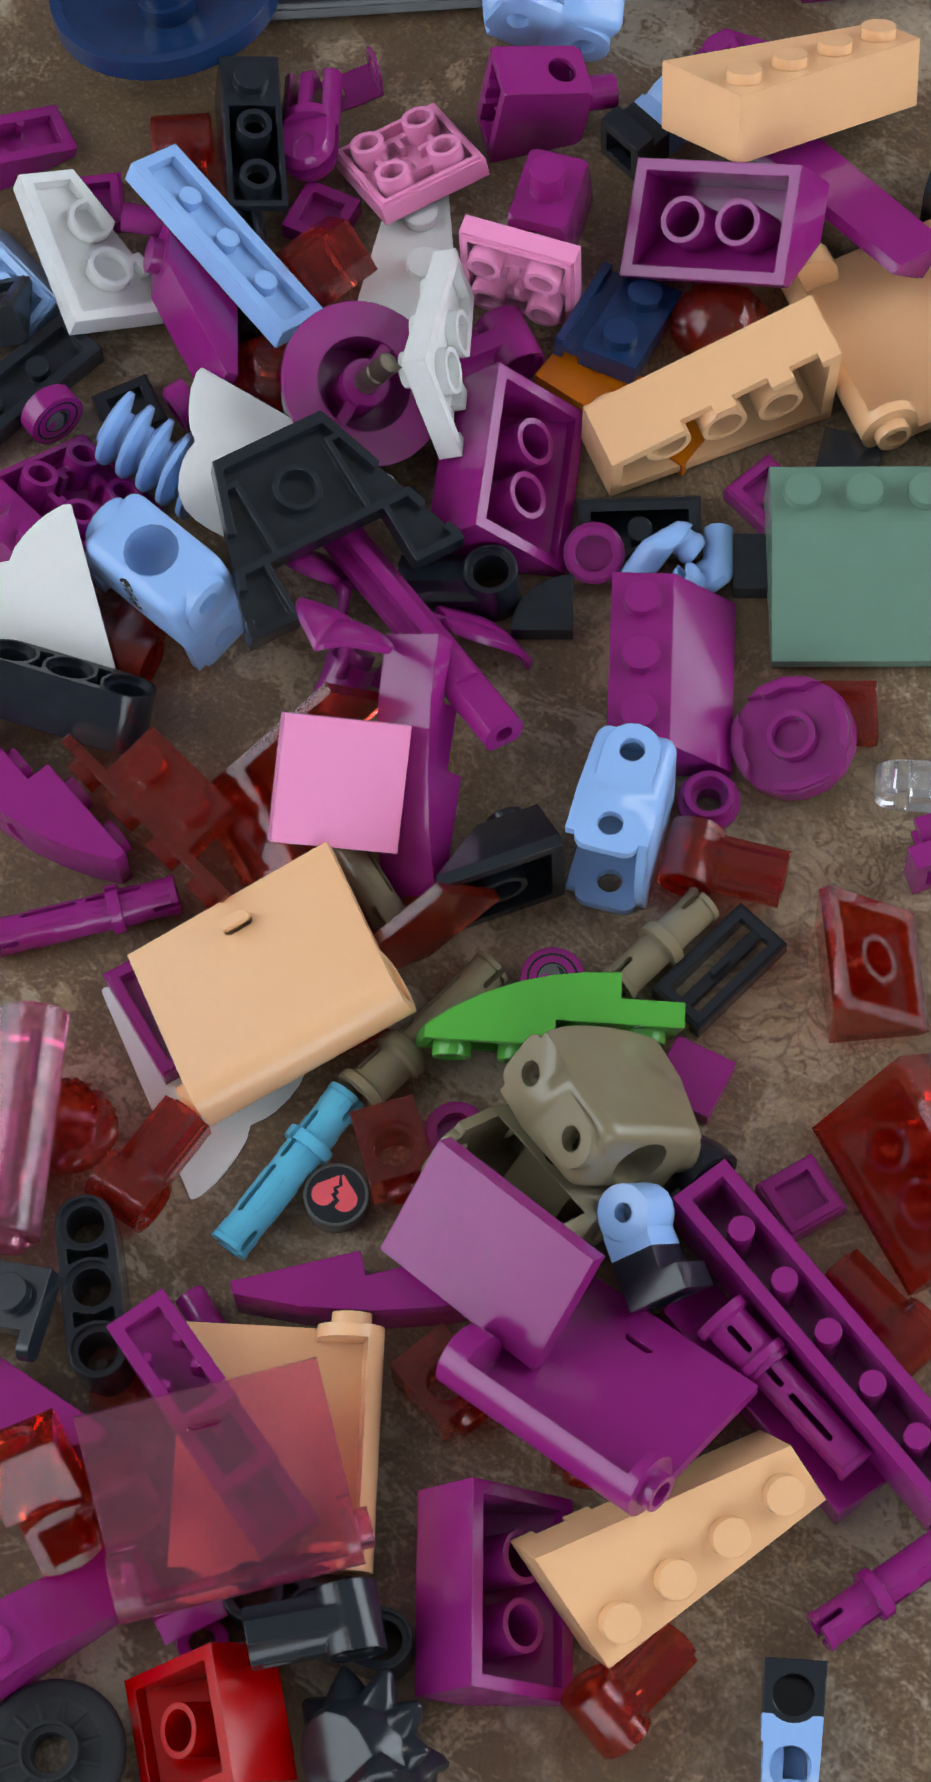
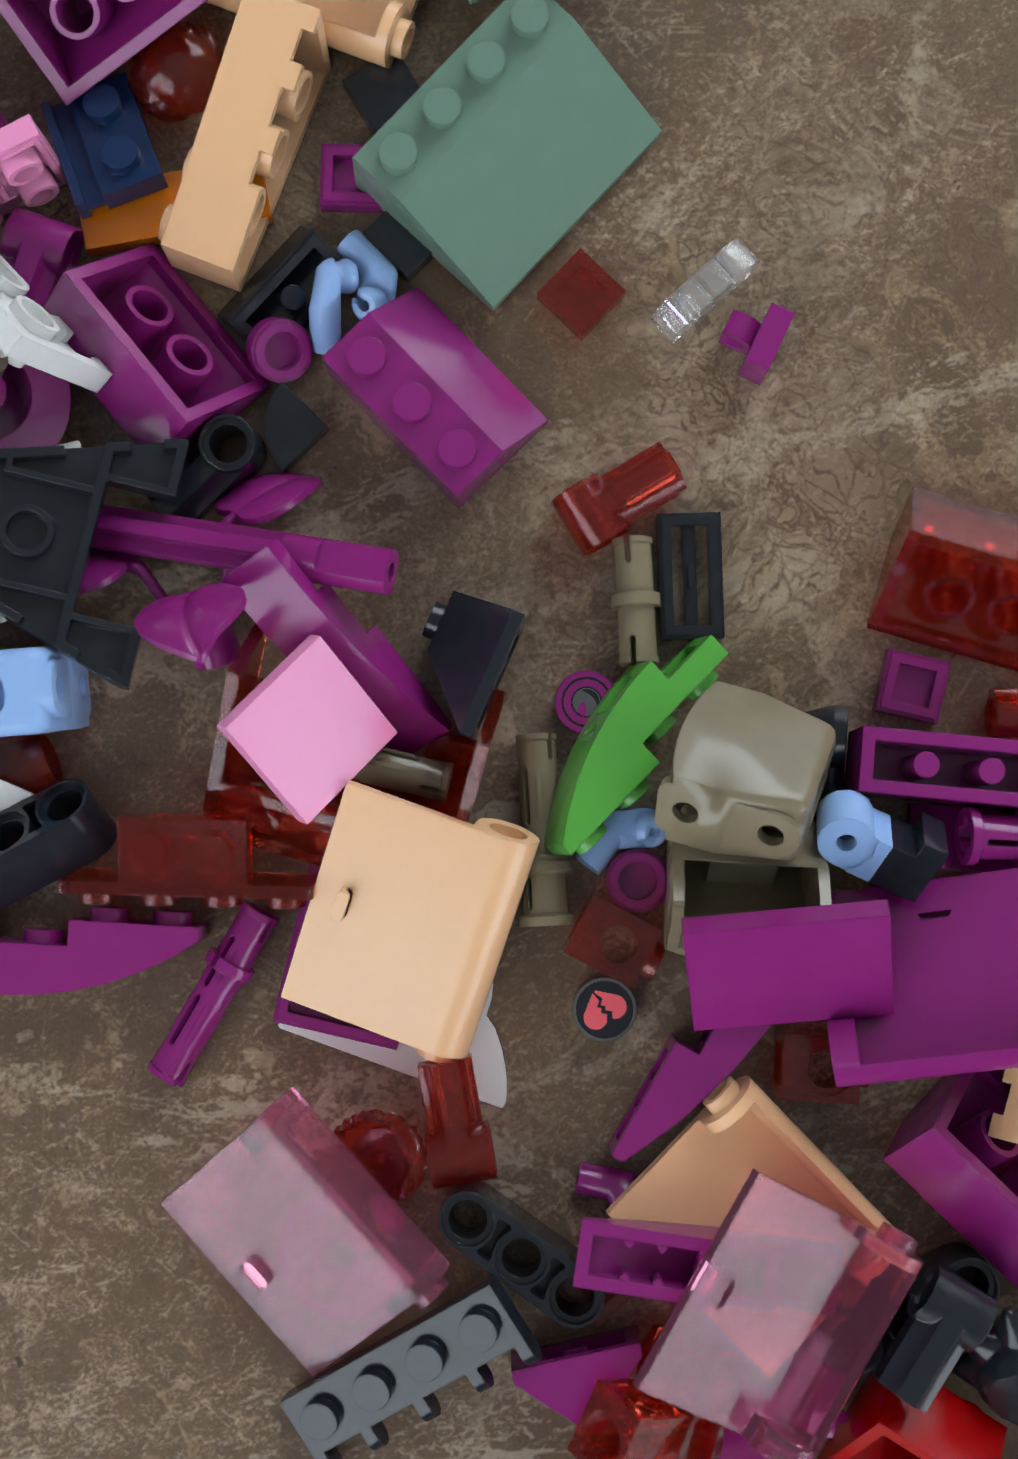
camera: 55 degrees left, 20 degrees up
(279, 1181) = (551, 1011): medium azure pin -> none
(473, 1085) = (625, 830): none -> light blue arm
(621, 816) = (525, 538): light blue piece -> none
(702, 1075) = (758, 669): magenta tile -> none
(712, 785) = (556, 440): magenta plate -> none
(793, 738) = (569, 351): magenta tile -> none
(868, 968) = (795, 476): clear red slope -> none

